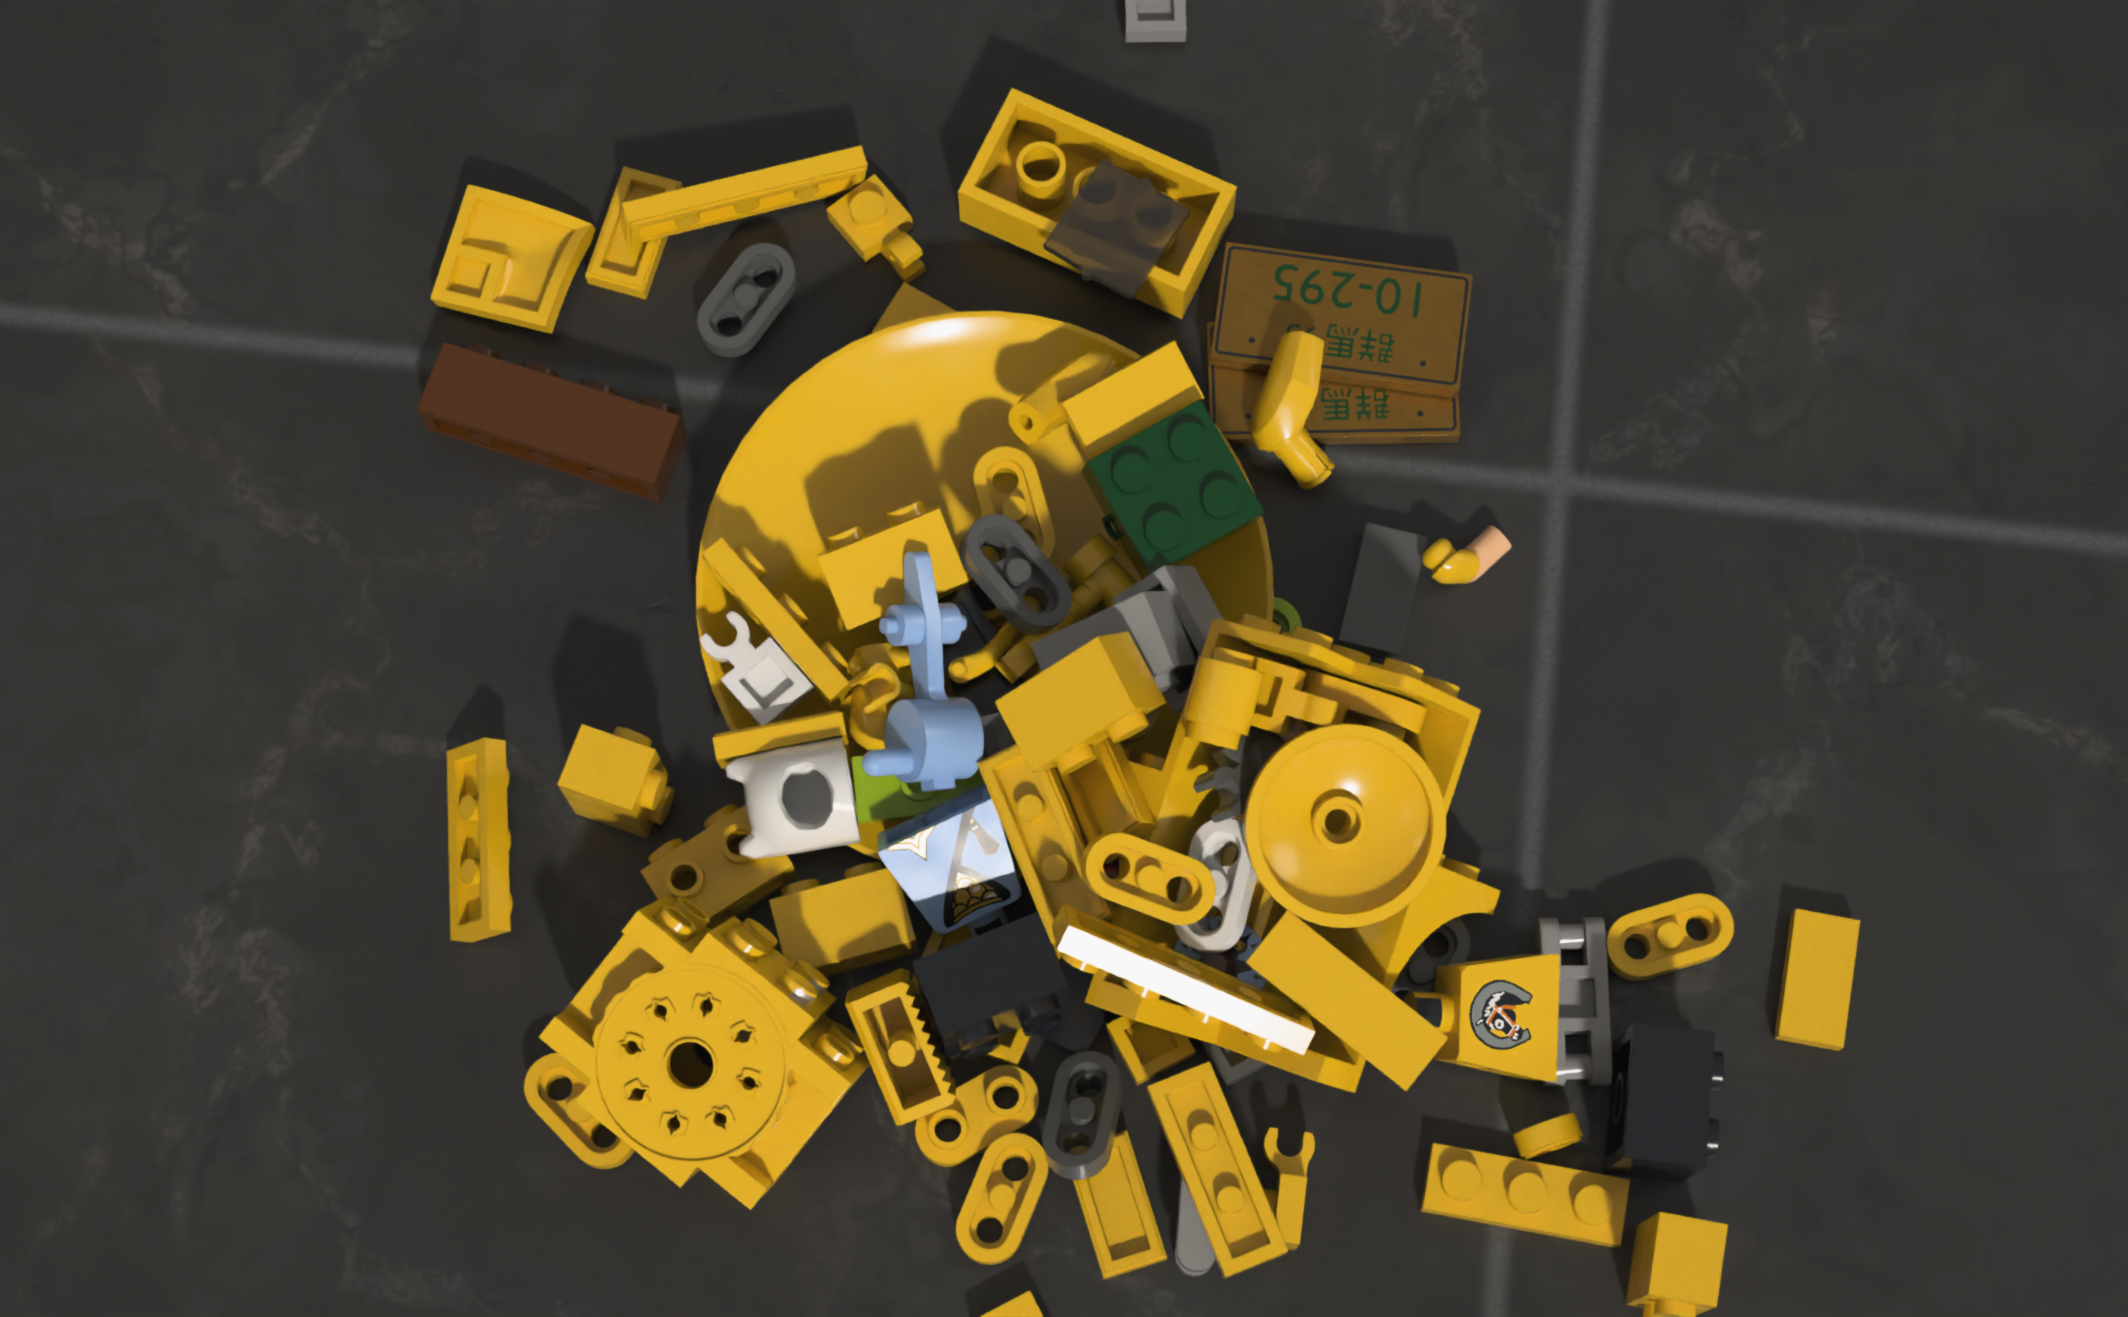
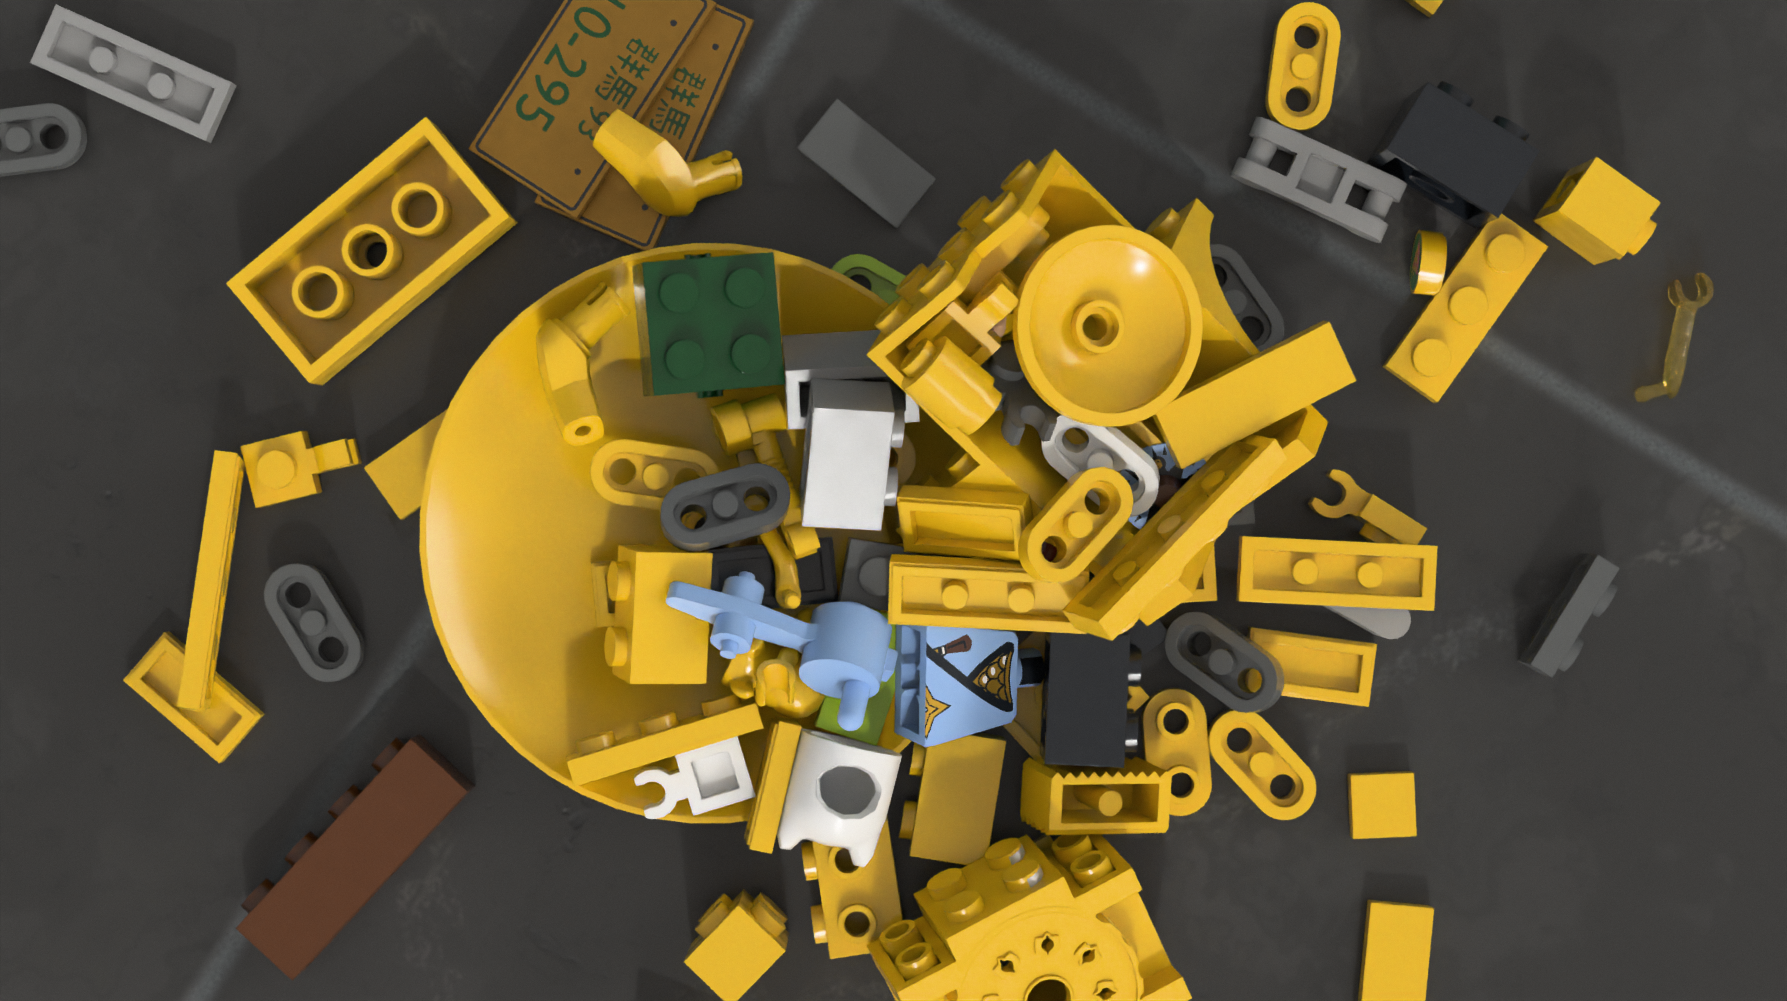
camera: 65 degrees left, 15 degrees up
(510, 259) = (172, 826): yellow plate -> none
(1080, 703) = (892, 512): yellow brick -> none
(1116, 229) = (418, 251): clear smoke piece -> none
(1131, 399) = (608, 323): yellow tile -> none
(1467, 563) = (878, 73): yellow arm -> none
(1497, 1014) = (1305, 259): yellow torso -> none

